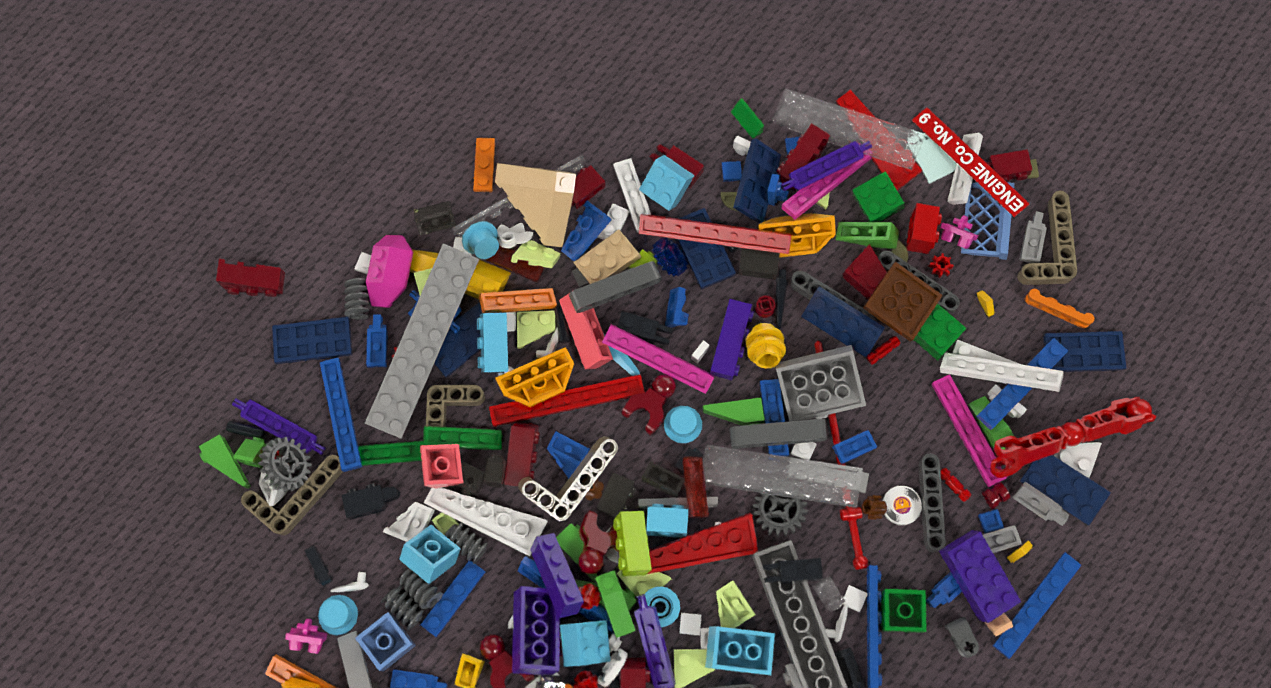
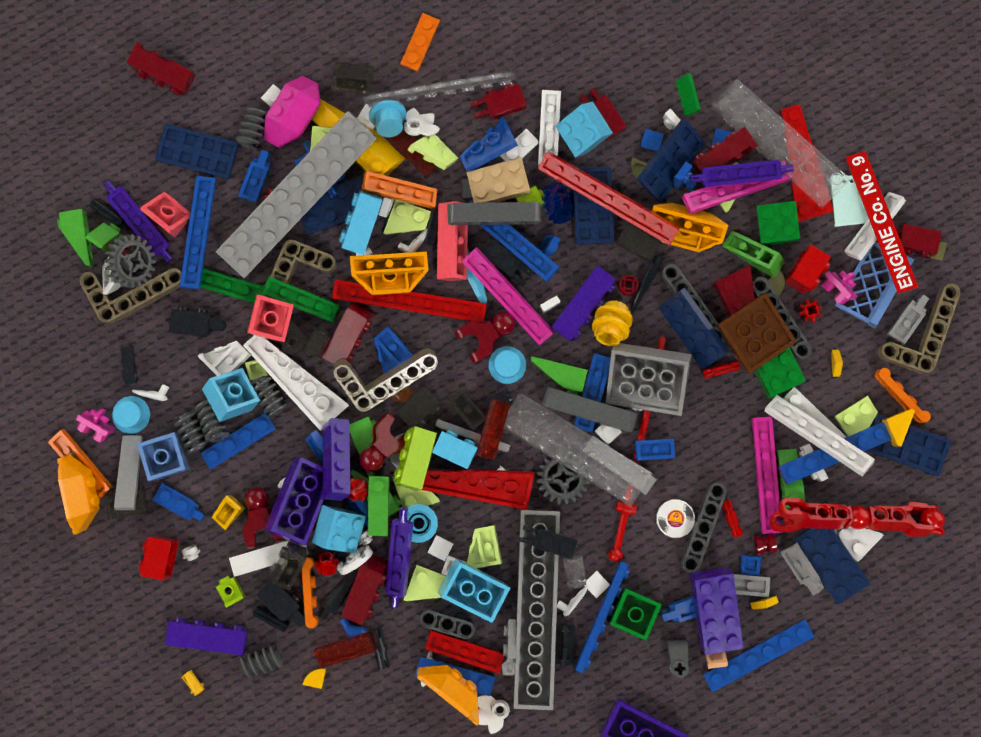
camera: 20 degrees right, 10 degrees up
(304, 408) = (167, 213): none -> coral slope
(541, 197) = (458, 97): tan slope -> none
(654, 310) = (523, 249): none -> blue plate
(874, 507) = (649, 510): reddish brown gear -> none
(1027, 344) = (857, 416): none -> yellowish green wing
(1069, 336) = (898, 426): none -> yellow slope

